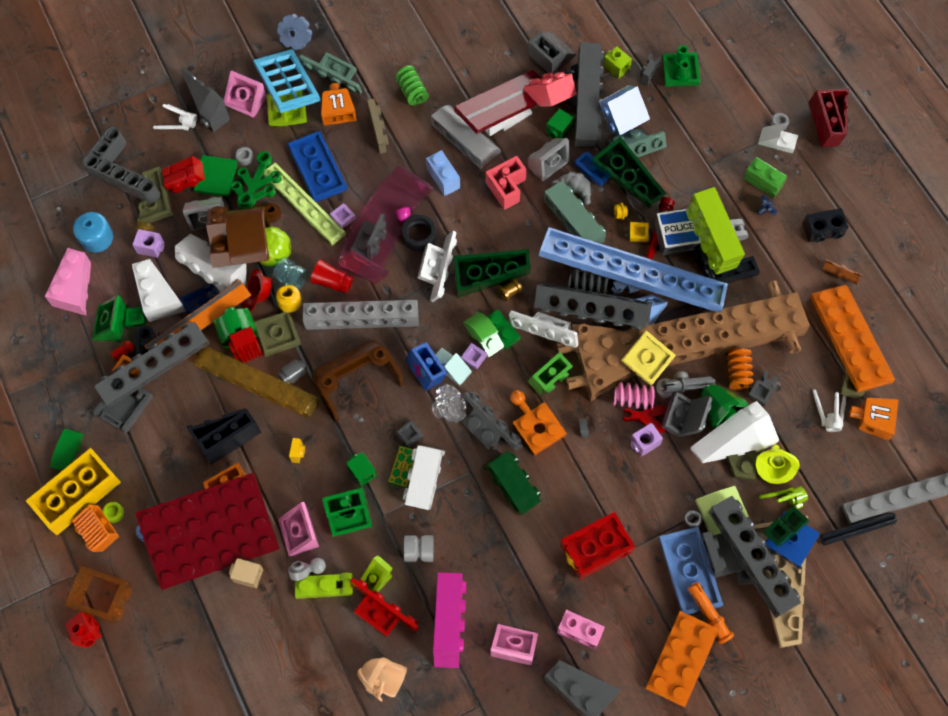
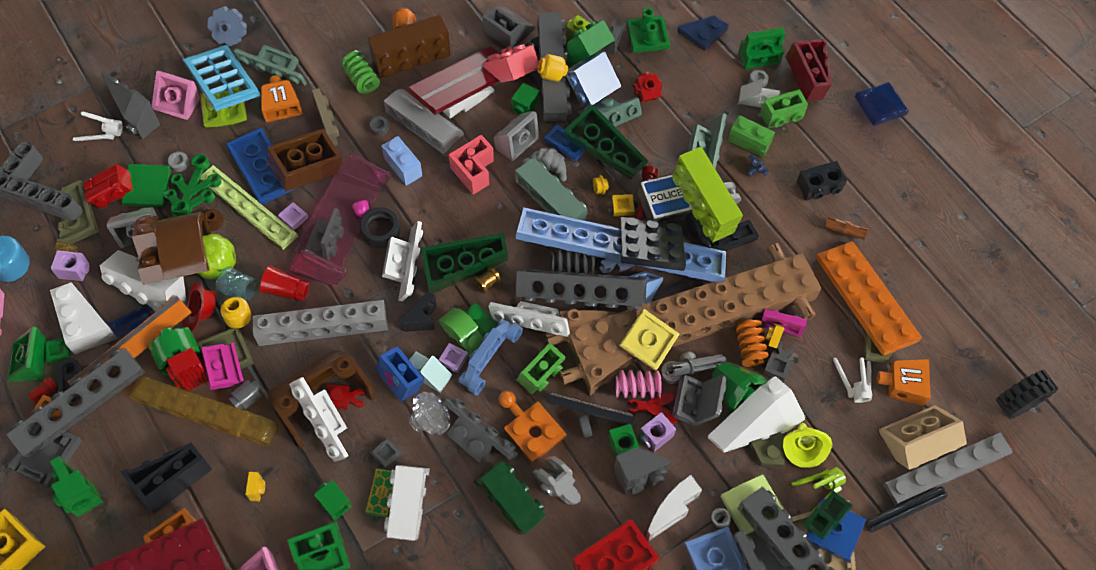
camera: 10 degrees left, 5 degrees down
(146, 437) = (73, 489): none -> green brick
(274, 344) = (221, 366): none -> dark pink plate
(356, 165) = (304, 160): none -> reddish brown brick
(358, 397) = (323, 416): none -> white bracket
(373, 381) = (342, 397): none -> red plate
(424, 137) = (379, 126): none -> dark grey tile
(445, 317) = (416, 318): none -> black slope
(455, 40) = (402, 18): none -> orange head
(459, 65) = (410, 46): none -> reddish brown brick
(499, 357) = (482, 356): none -> medium blue plate
(555, 473) = (558, 482): none -> light grey hinge
(587, 97) = (552, 67): none -> yellow head
(590, 413) = (590, 408): none -> black tile
(615, 438) = (622, 434): none -> green brick
(623, 75) = (588, 42): none -> slope
(627, 469) = (638, 469): none -> dark grey slope
(653, 504) = (674, 507): none -> white slope
(660, 271) = (652, 244): none -> black plate
(668, 124) = (647, 87): none -> red brick
(724, 179) = (710, 139): none -> sand green bracket
(734, 70) = (703, 31): none -> dark blue wing
(761, 363) = (774, 335): none -> yellow plate
(771, 353) = (792, 324): none -> dark pink plate
(787, 93) = (762, 48): none -> green brick
(799, 153) = (783, 109): none -> bright green brick
(883, 467) = (923, 436): none -> tan slope
(893, 156) = (881, 104): none -> clear blue plate

